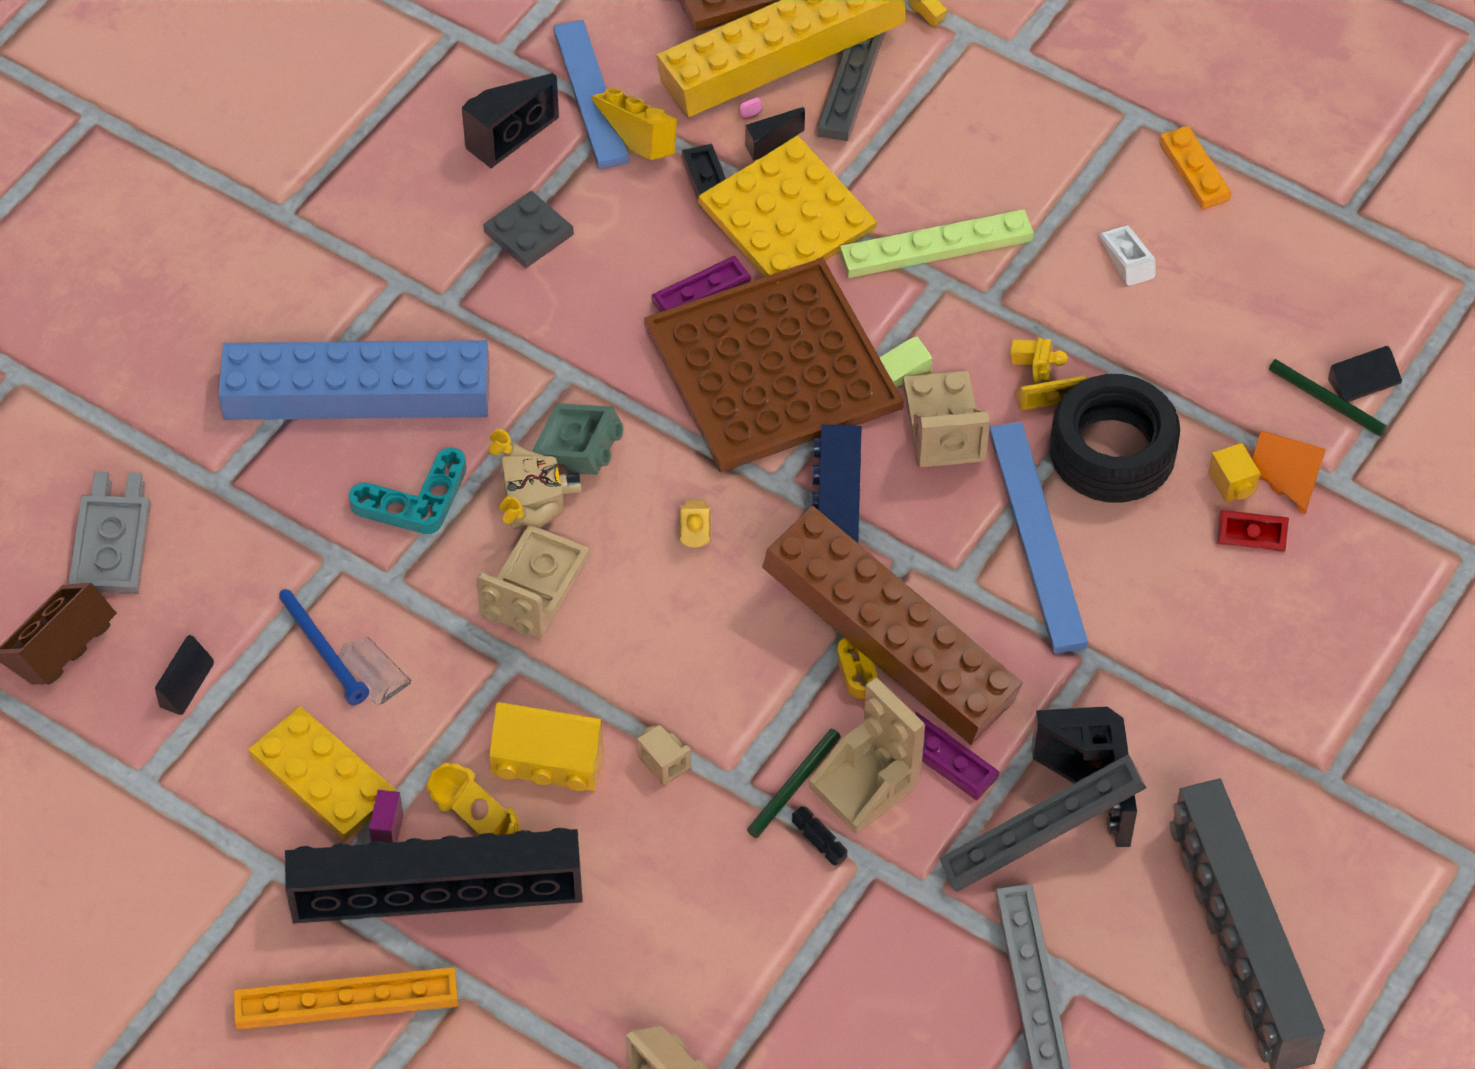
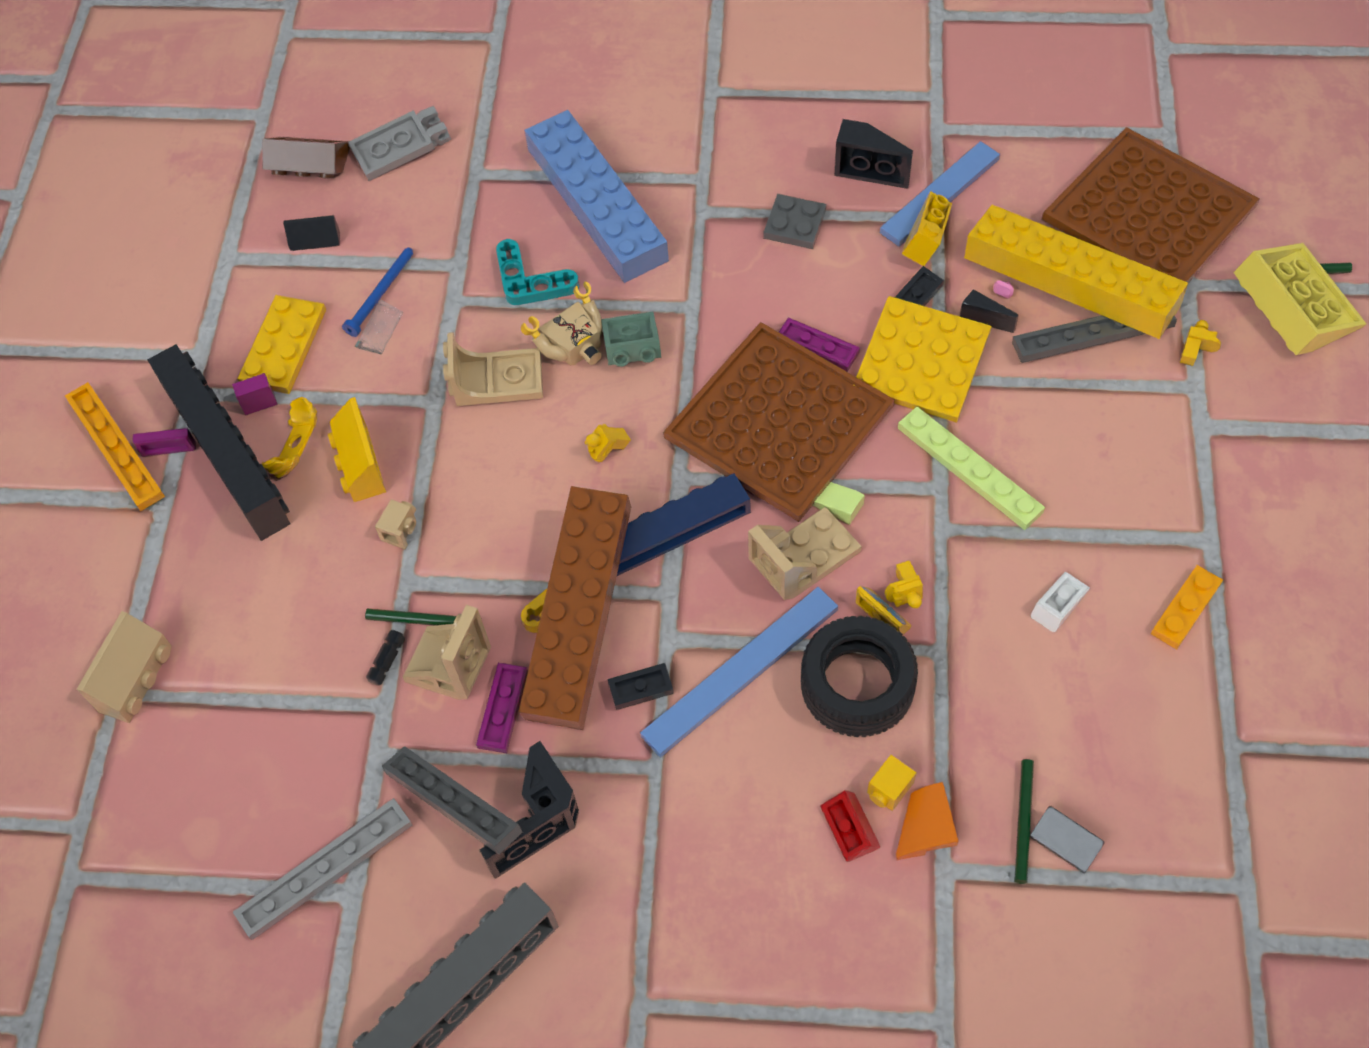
camera: 65 degrees right, 5 degrees up
(384, 940) = (164, 442): none -> magenta tile
(1003, 623) = (640, 686): none -> black plate

